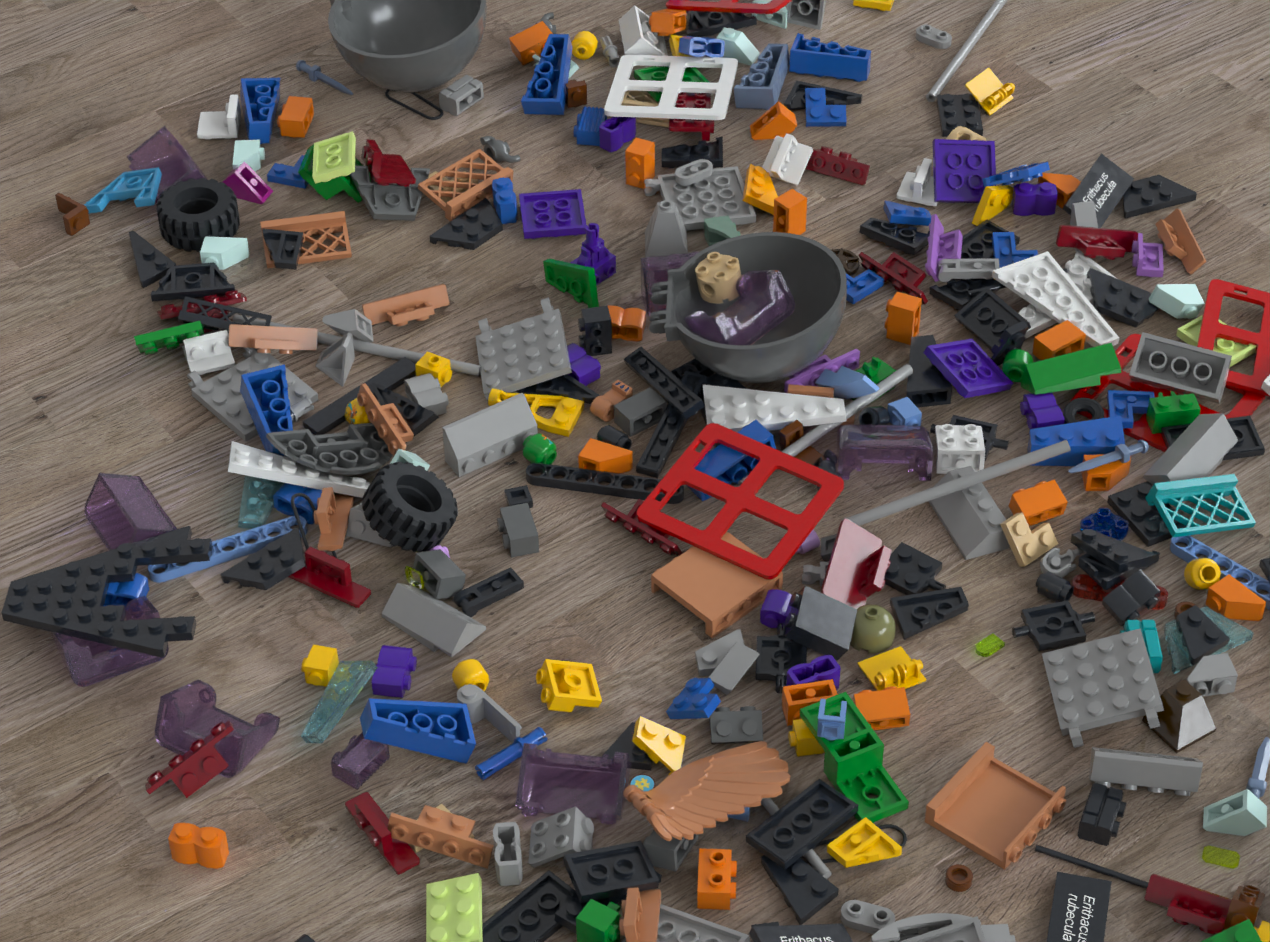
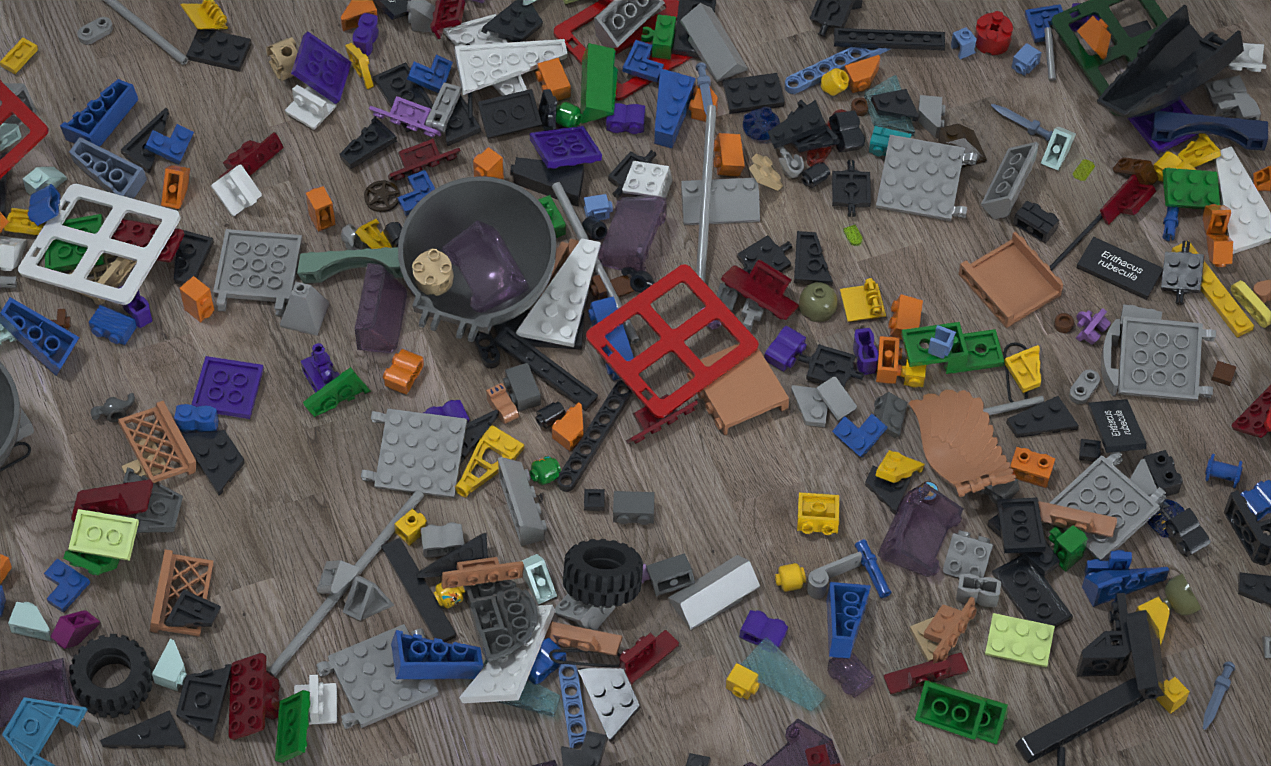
camera: 75 degrees left, 15 degrees up
(214, 323) = (297, 670): black fence -> none
(272, 337) = (330, 642): nougat bracket -> none
(331, 876) = (961, 712): none -> green slope
(407, 306) = (318, 530): nougat bracket -> none
(414, 577) = (664, 594): clear neon green piece -> none
(488, 591) = (695, 545): black plate -> none
(596, 331) = (418, 390): black brick -> none
(664, 382) = (503, 358): black plate -> none
(693, 172) = (229, 263): light grey plate -> none
(759, 189) = (265, 222): light orange wing -> none
(802, 823) = (1001, 398): black tile -> none
(820, 622) = (815, 328): brick -> none
(847, 383) = (567, 226): light blue slope -> none
(906, 214) = (342, 129): blue wing -> none
(966, 899) = (1088, 332): none -> medium lavender hips
(1020, 173) = (339, 31): blue wing -> none
(1082, 404) = (639, 83): black tyre -> none
(1194, 491) = (753, 57): teal fence -> none

